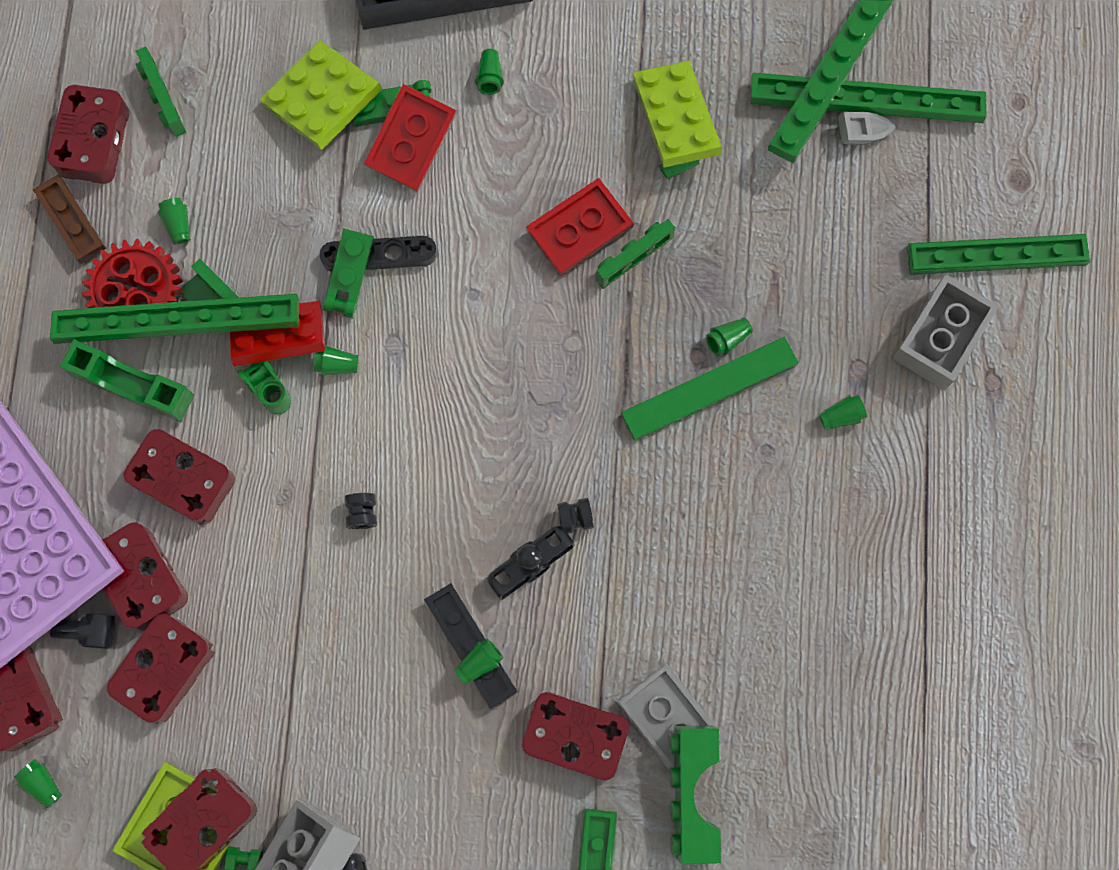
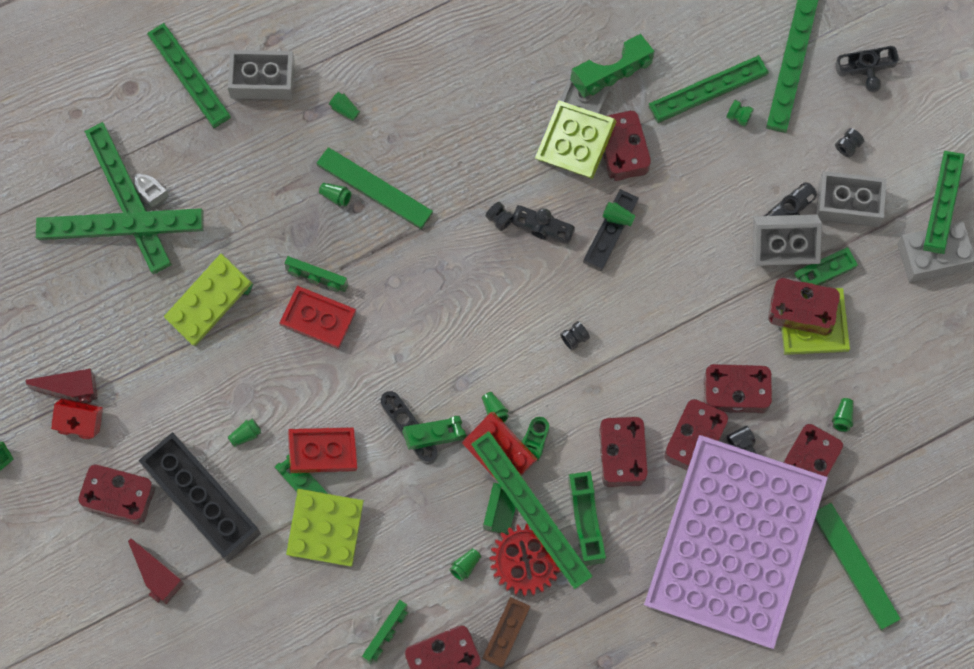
camera: 120 degrees left, 5 degrees down
(617, 673) = (575, 139): none -> lime plate

